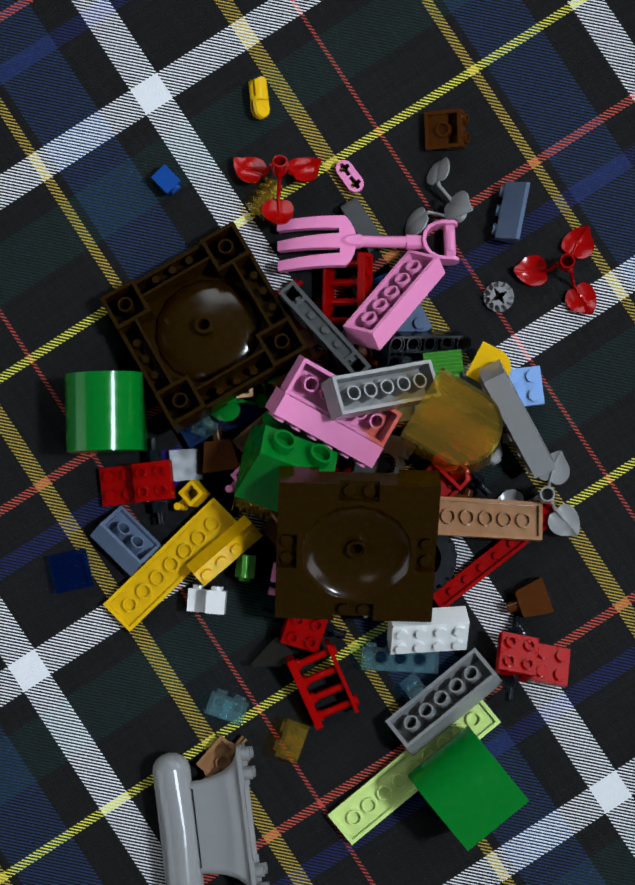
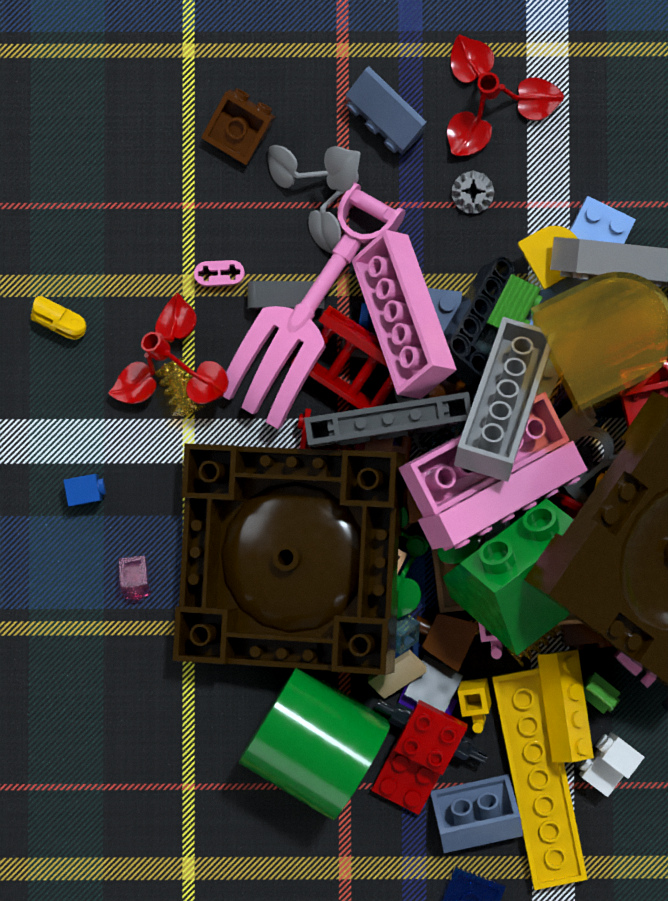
camera: 60 degrees left, 0 degrees up
(133, 244) = (134, 577): none -> clear pink bracket
(183, 441) = (407, 669): none -> tan tile

